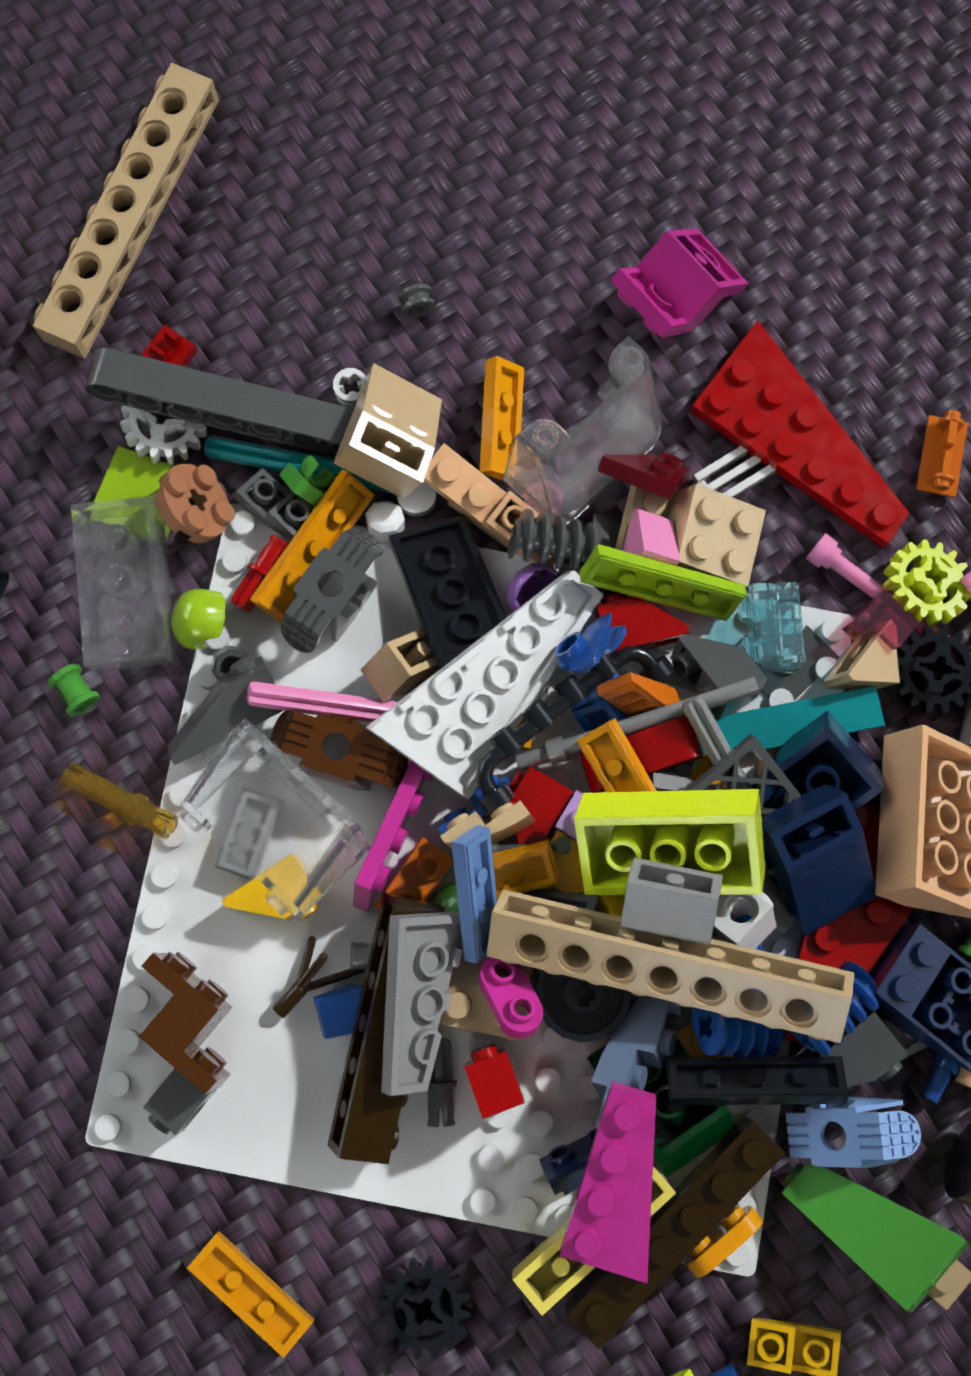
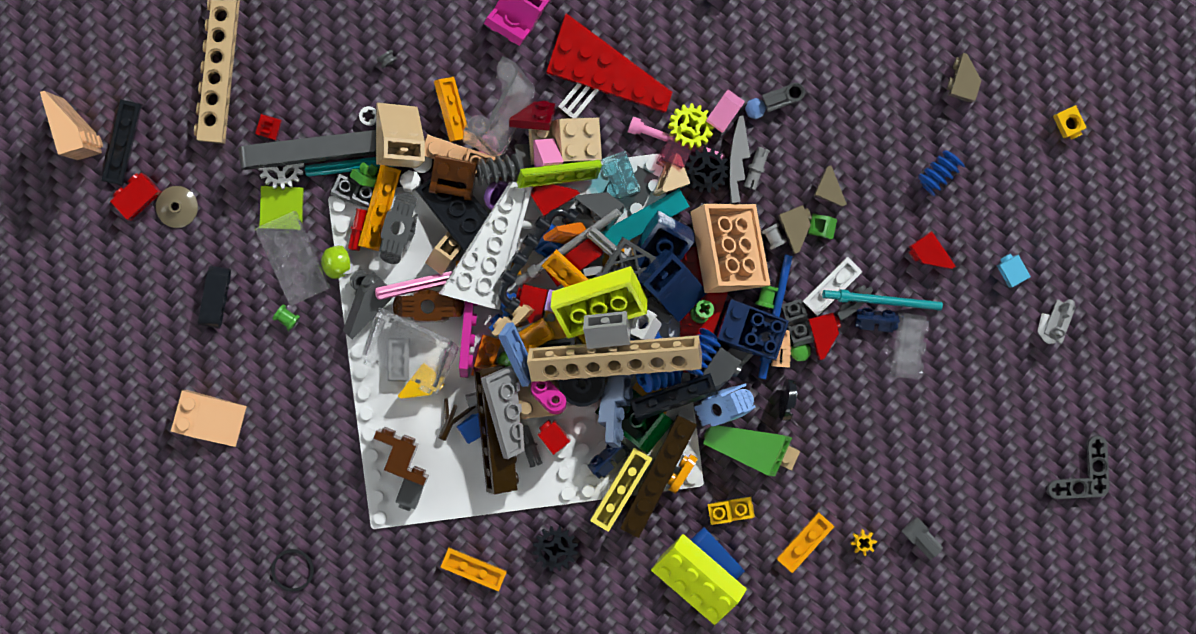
camera: 20 degrees left, 10 degrees up
(133, 807) = (336, 365): clear yellow pin -> none
(199, 521) = (312, 194): nougat plate -> none
(471, 520) = (453, 170): none -> reddish brown plate
(584, 651) = (530, 221): blue plate -> none
(614, 1197) = (624, 471): dark pink wing -> none
(856, 926) = (702, 305): none -> bright green bush
(942, 454) = (681, 55): orange hinge -> none

